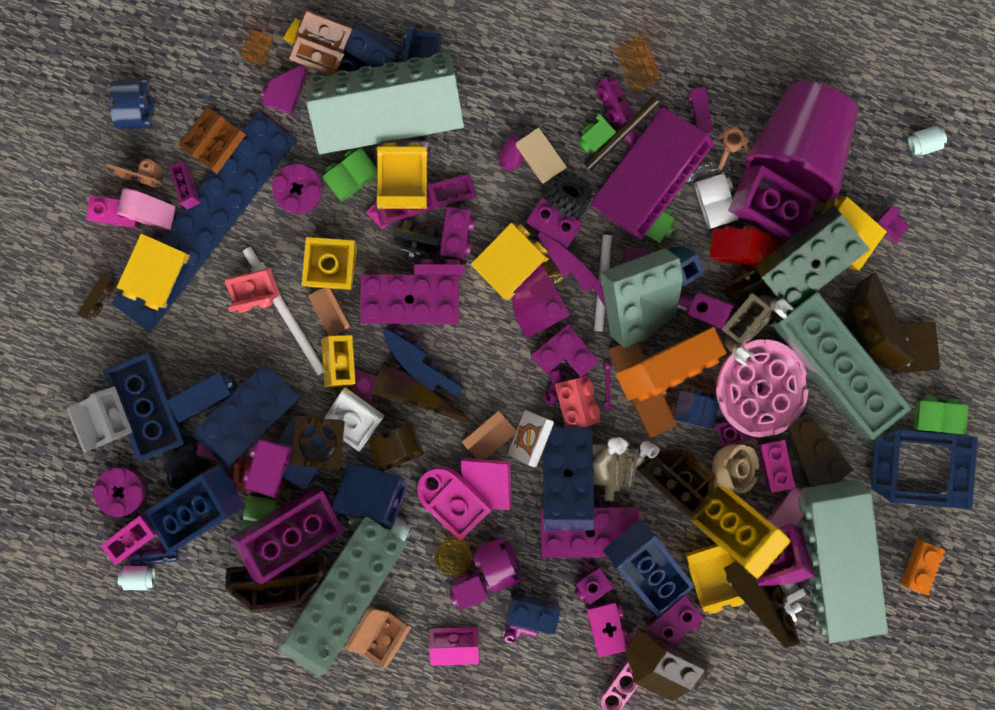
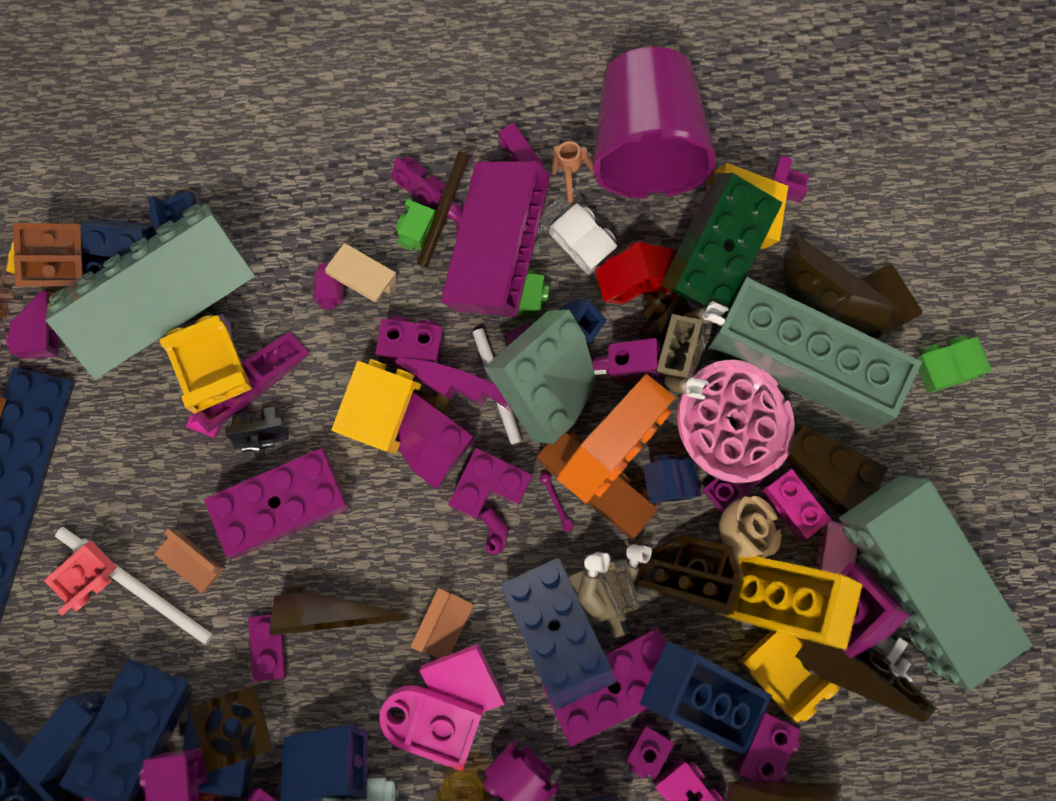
camera: 25 degrees left, 10 degrees down
(284, 184) = (75, 431): magenta brick -> none
(329, 263) = (160, 501): yellow slope -> none
(338, 361) = (219, 616): yellow brick -> none
(350, 174) = (149, 391): bright green brick -> none
(359, 418) = (273, 674): white tile -> none
(395, 447) = (332, 689): dark brown brick -> none
(412, 357) = (310, 573): dark blue slope -> none
(450, 267) = (307, 443): magenta plate -> none
(455, 234) = (300, 403): magenta brick -> none
(530, 438) = (491, 604): white tile -> none
(562, 201) = (412, 302): black tyre -> none
(578, 402) = (529, 535): coral bracket -> none
(638, 64) = (429, 132): clear orange panel -> none
(772, 203) = (646, 208): magenta brick -> none
(922, 567) = (1024, 547): orange brick -> none
(927, 141) = (782, 76): light aqua brick -> none
(960, 476) = (1008, 410): dark blue wedge -> none

